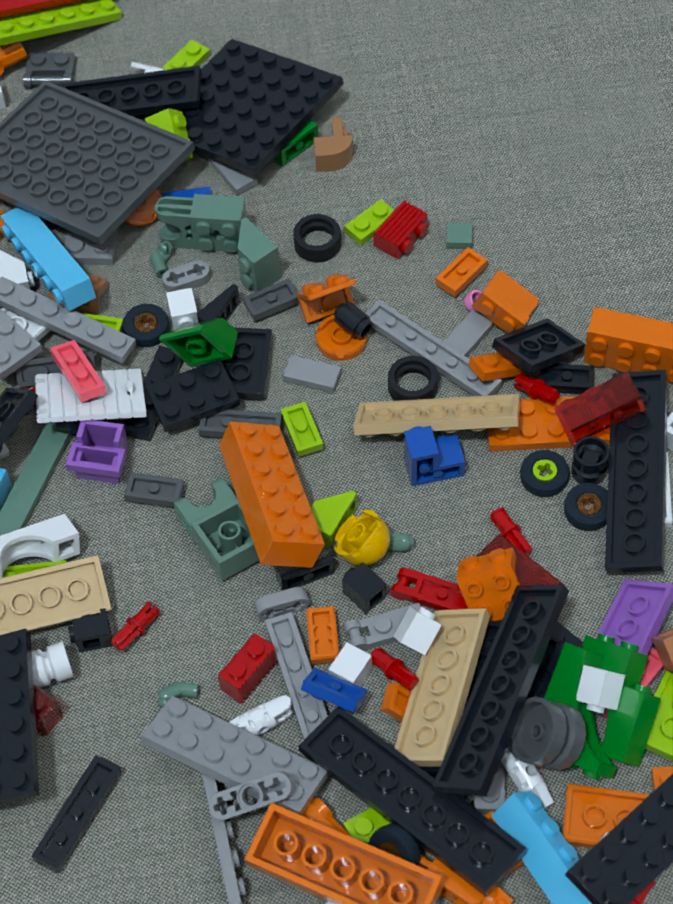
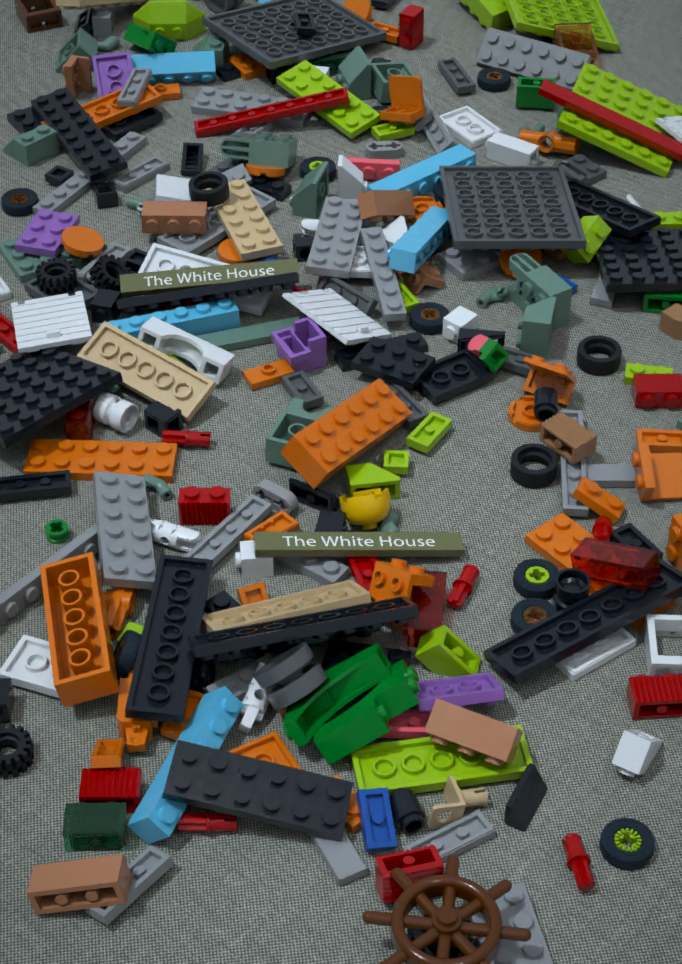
camera: 50 degrees right, 15 degrees down
(78, 370) = (345, 295): coral plate -> none
(100, 717) = (87, 456): none -> orange plate
(102, 502) = (267, 374): none -> orange plate
(160, 822) = (52, 533): none -> green bush
(186, 276) = (492, 315): light grey beam -> none
(202, 342) = (438, 338): green slope -> none
(229, 794) = (88, 539): light grey beam -> none
(248, 312) = (488, 351): none -> green leg
(312, 373) = (483, 415): light grey tile -> none
(318, 479) = (396, 461): none -> lime plate
(334, 690) = (224, 552): blue plate -> none
(385, 729) = (220, 602): none -> black plate
(394, 668) = (278, 579): red axle -> none
(405, 580) = (358, 544): none -> olive tile
(414, 334) = (568, 437): none -> medium nougat brick
(418, 629) = (319, 571): white brick -> none
(432, 458) = (472, 505): blue brick -> none
(439, 413) = (514, 487): tan plate -> none
(538, 346) = (637, 508): black plate -> none
(586, 597) = (446, 653): none -> lime slope
(600, 689) = (357, 685): white brick -> none

